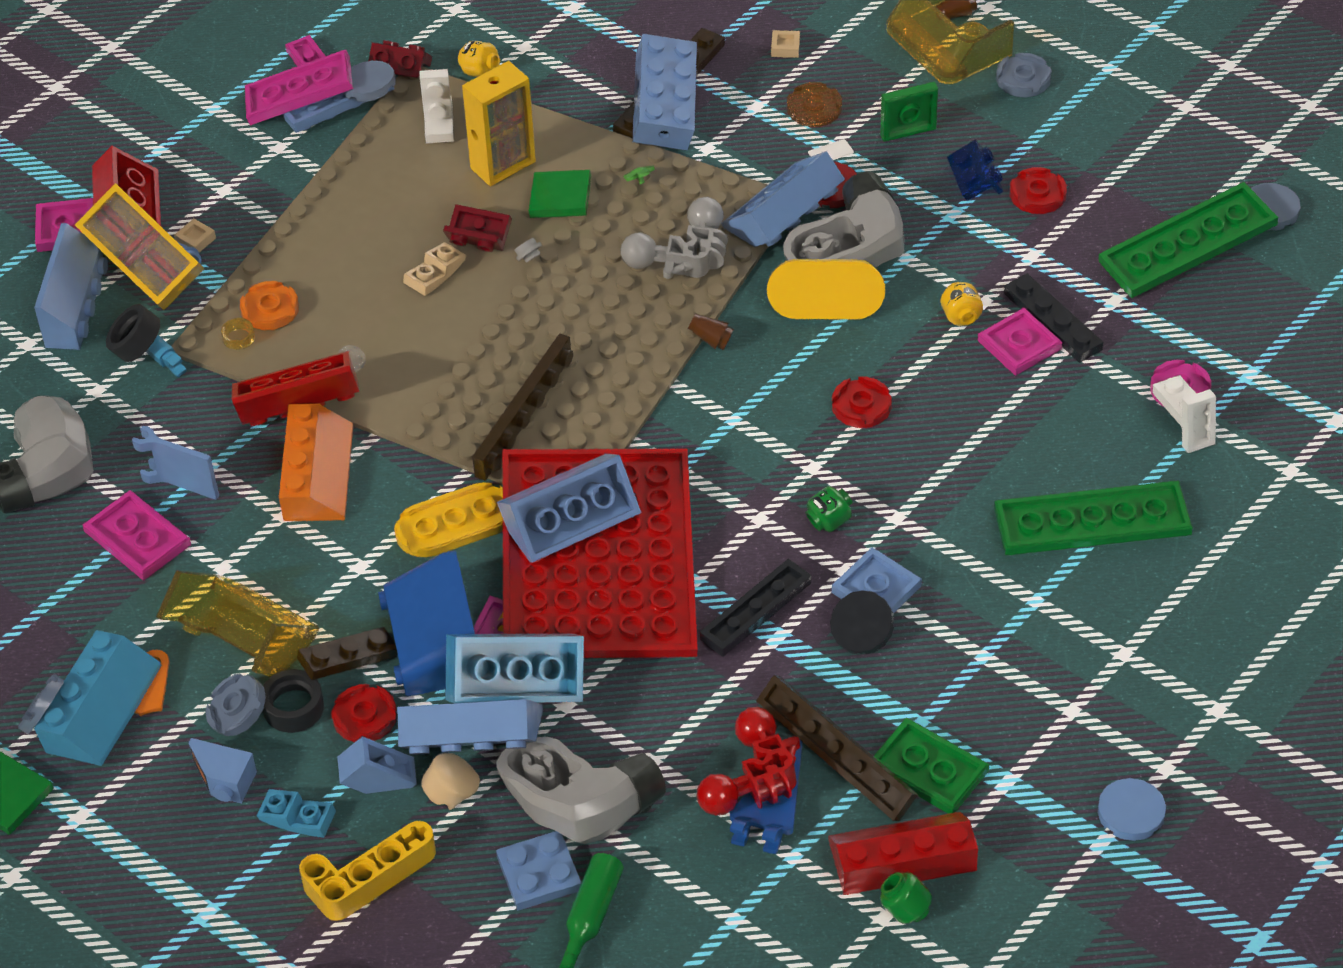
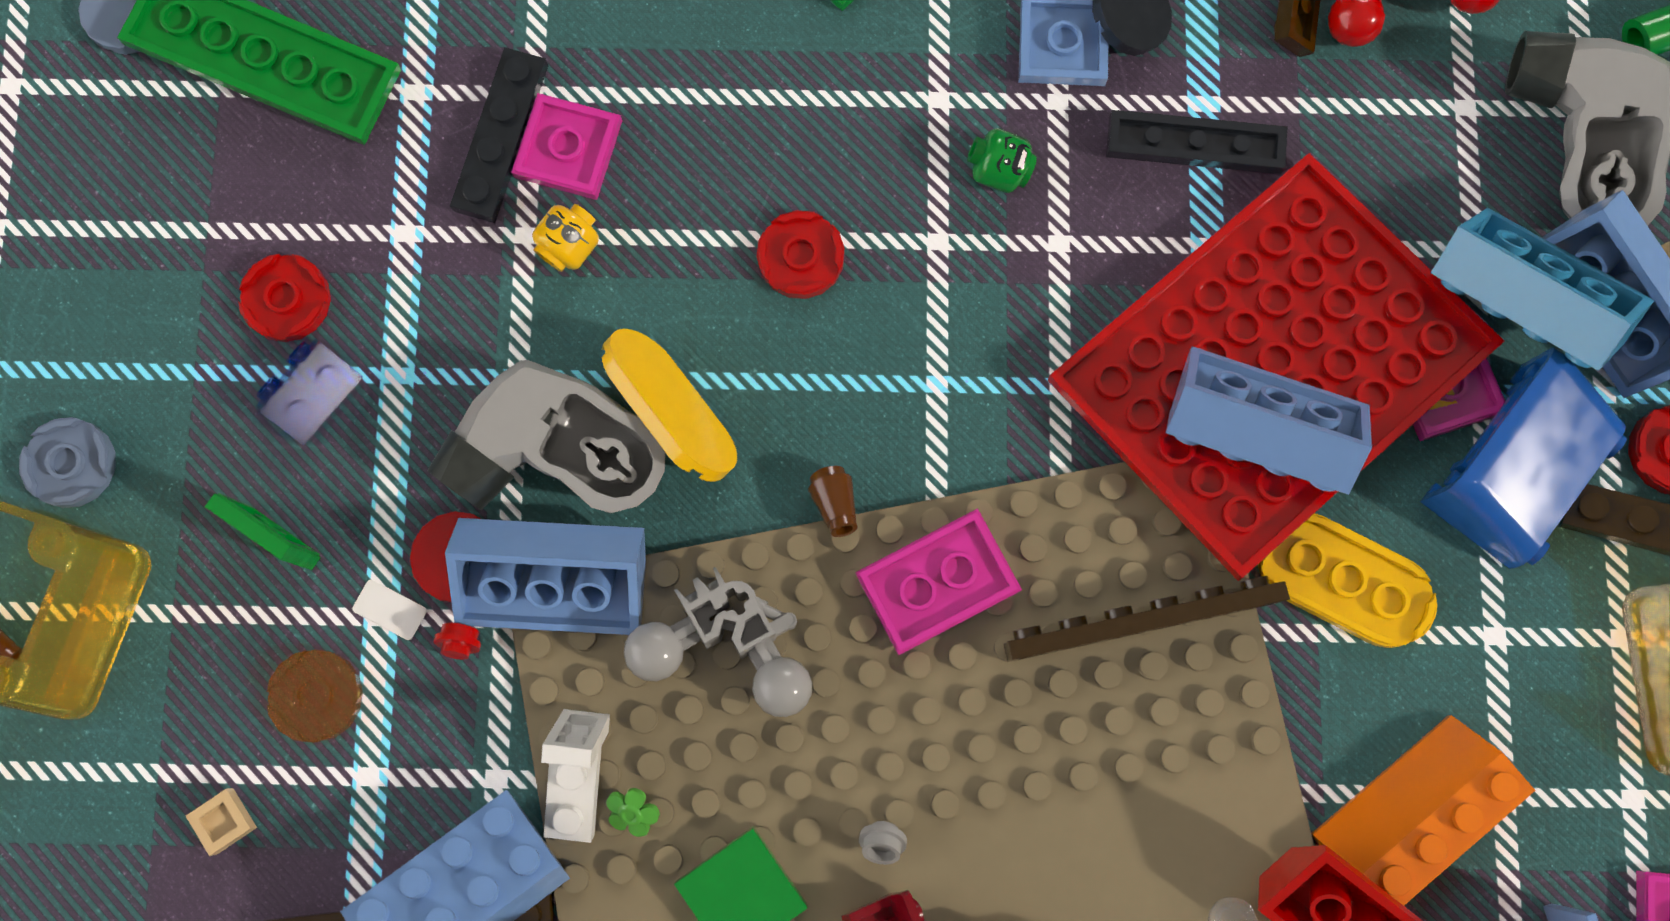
camera: 130 degrees left, 30 degrees up
(628, 347) = (938, 581): none -> dark pink tile
(682, 155) = (573, 774): none -> white bracket
(786, 159) = (457, 640): none -> red plate

